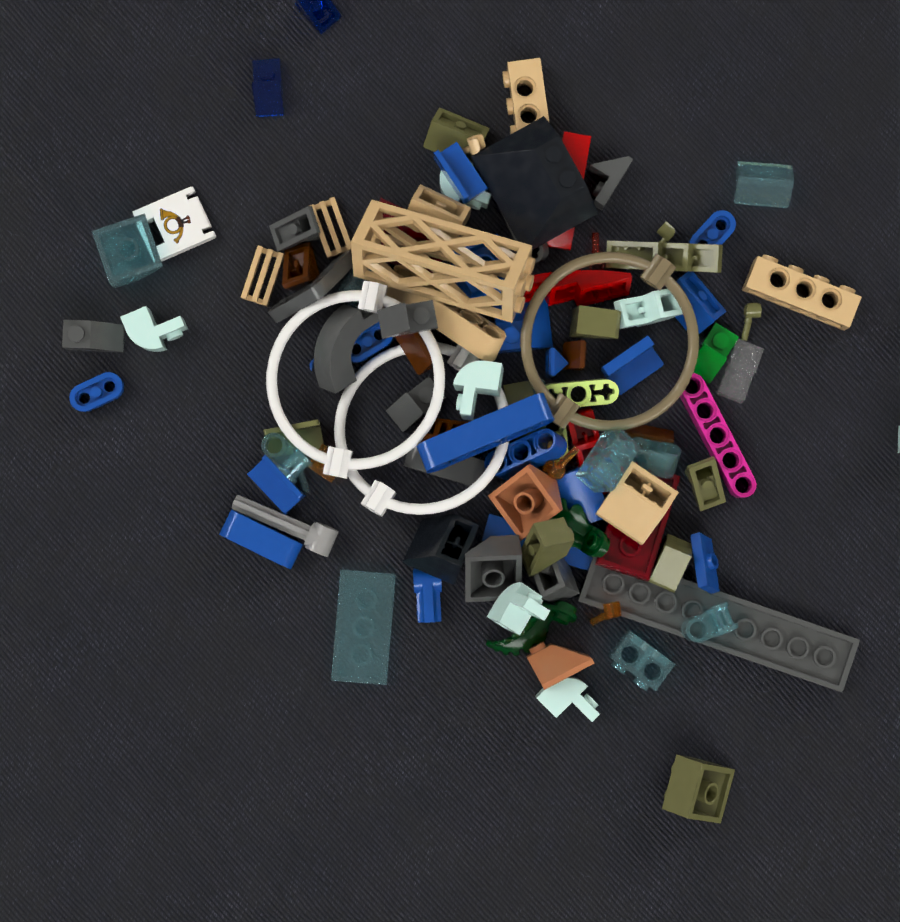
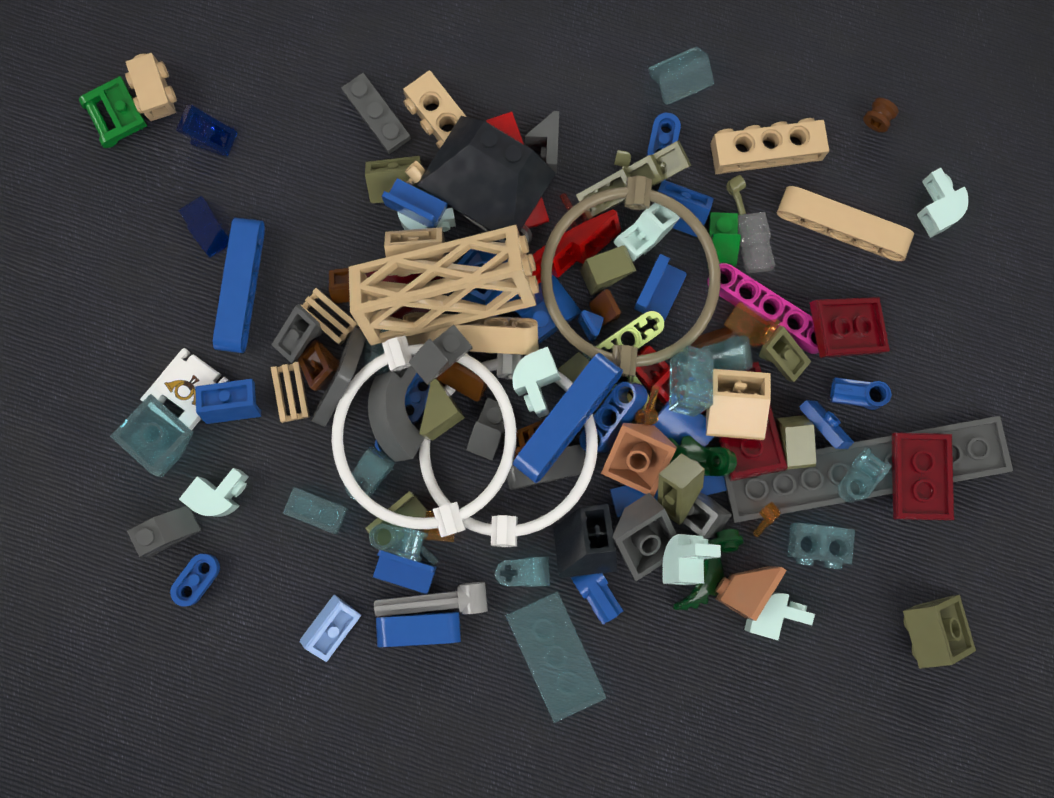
camera: 30 degrees left, 5 degrees down
(187, 496) = (329, 628): none -> light blue slope
(205, 254) = (227, 401): none -> blue panel
(229, 390) = (315, 510): none -> clear light blue plate
(269, 157) = (238, 285): none -> blue beam
(296, 383) = (372, 470): none -> clear light blue piece
(357, 205) = (339, 285): none -> reddish brown slope
(381, 366) = (439, 413): none -> olive slope
(381, 543) = (529, 572): none -> clear light blue piece
(472, 67) = (376, 113): none -> dark grey plate
(690, 440) = (749, 324): none -> clear orange bracket
(748, 550) = (857, 393): none -> blue piece
(761, 653) = (922, 476): none -> dark red tile
(775, 491) = (849, 327): none -> dark red tile
(827, 399) = (845, 223): none -> tan beam

